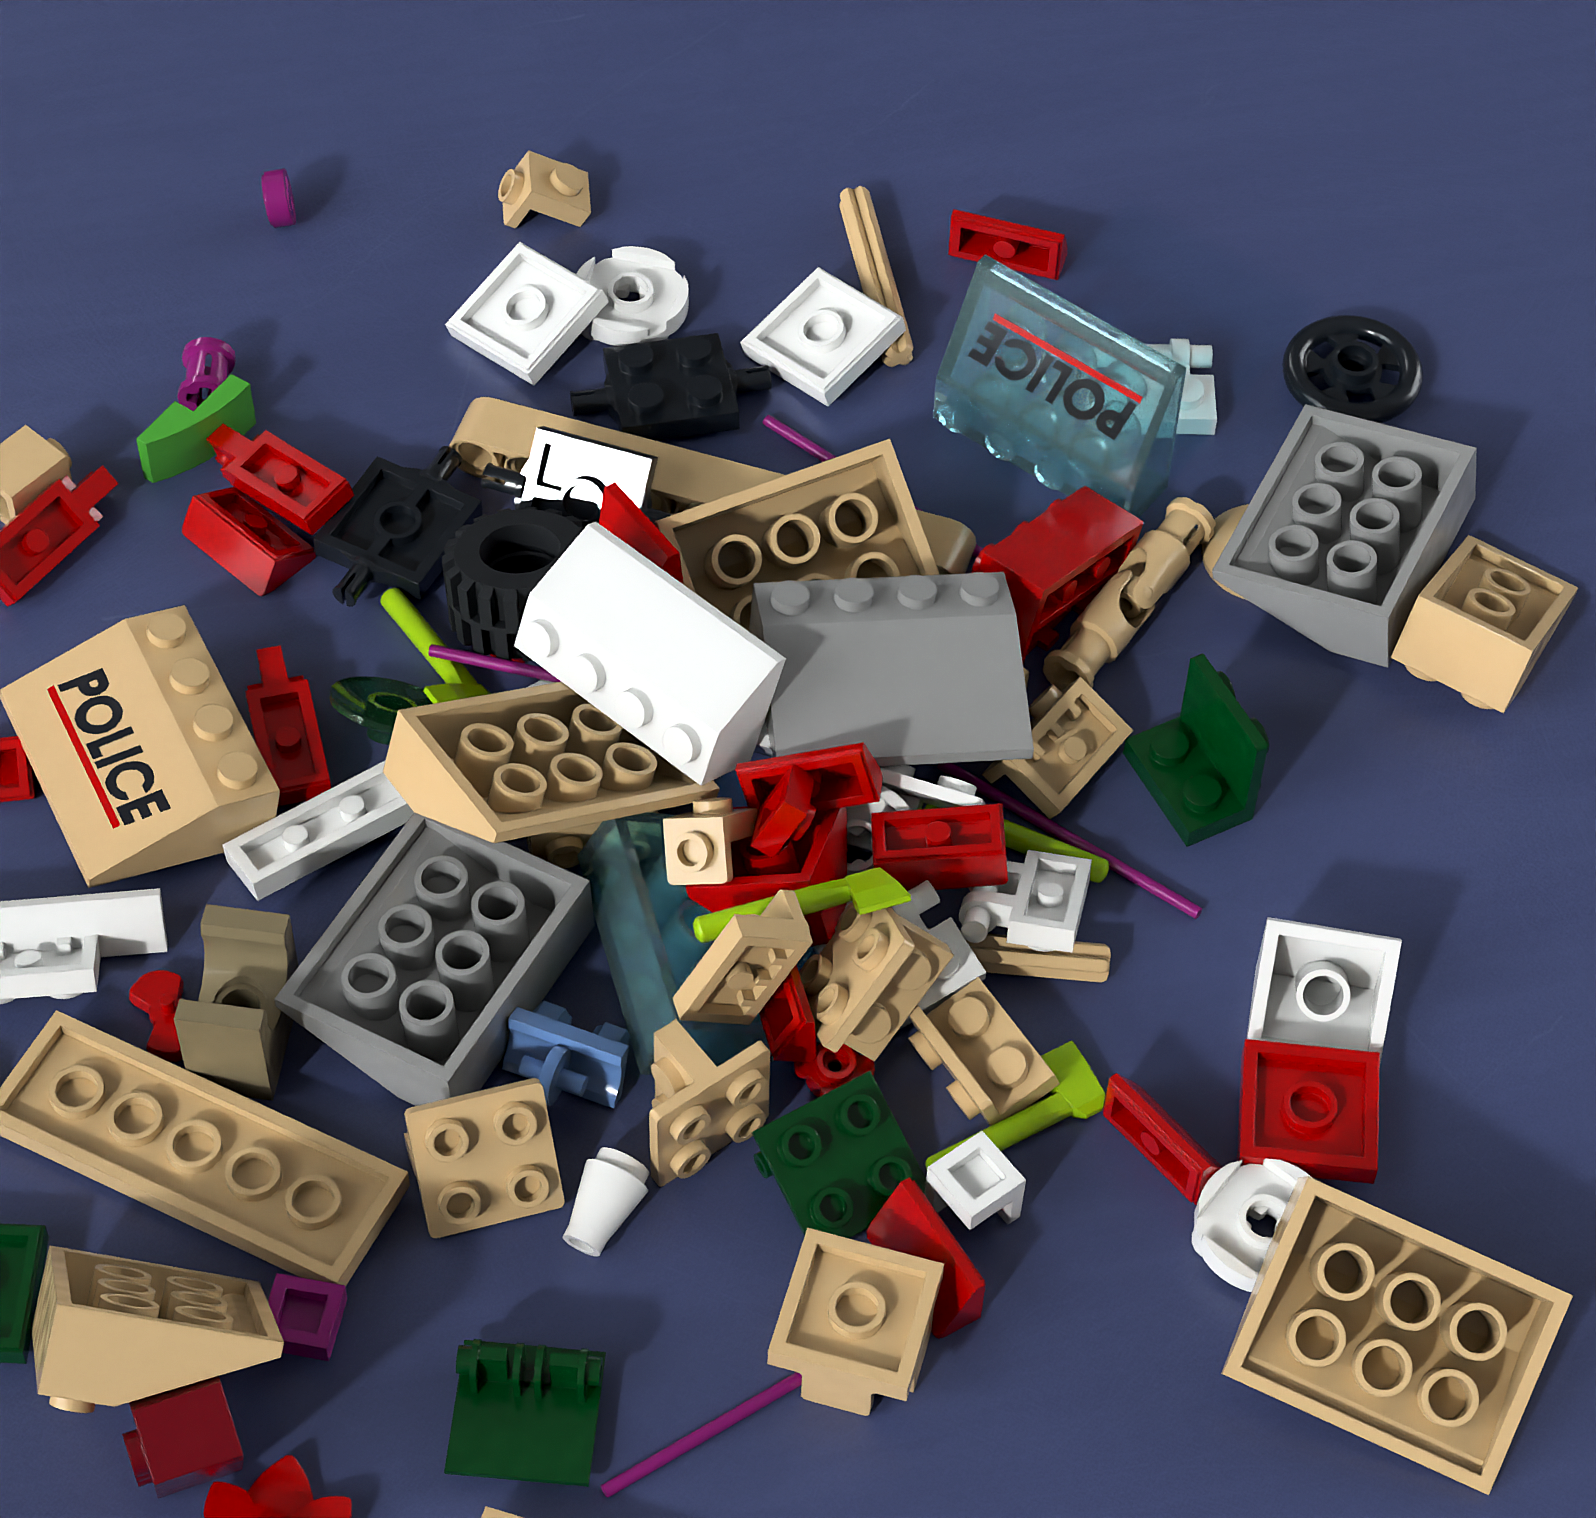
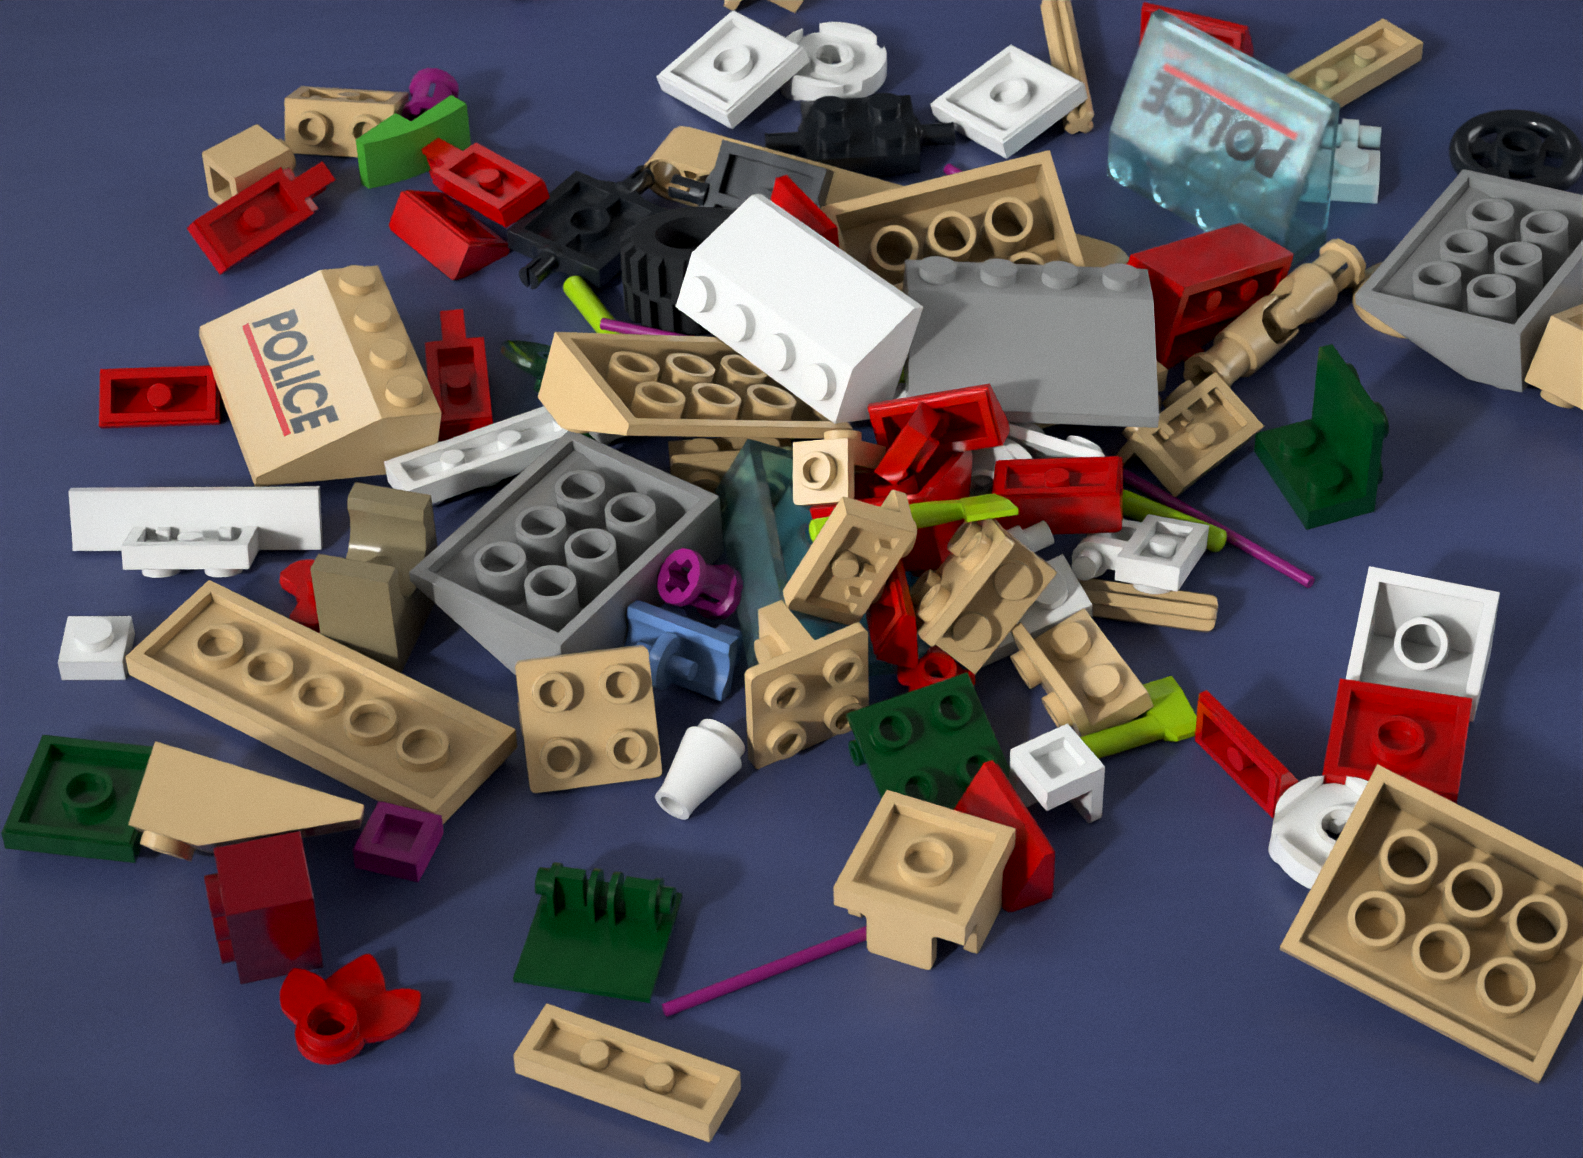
camera: 10 degrees right, 10 degrees down
(111, 400) = (333, 118): none -> tan bracket
(570, 982) = (699, 584): none -> magenta bush
(1168, 275) = (1360, 62): none -> tan plate

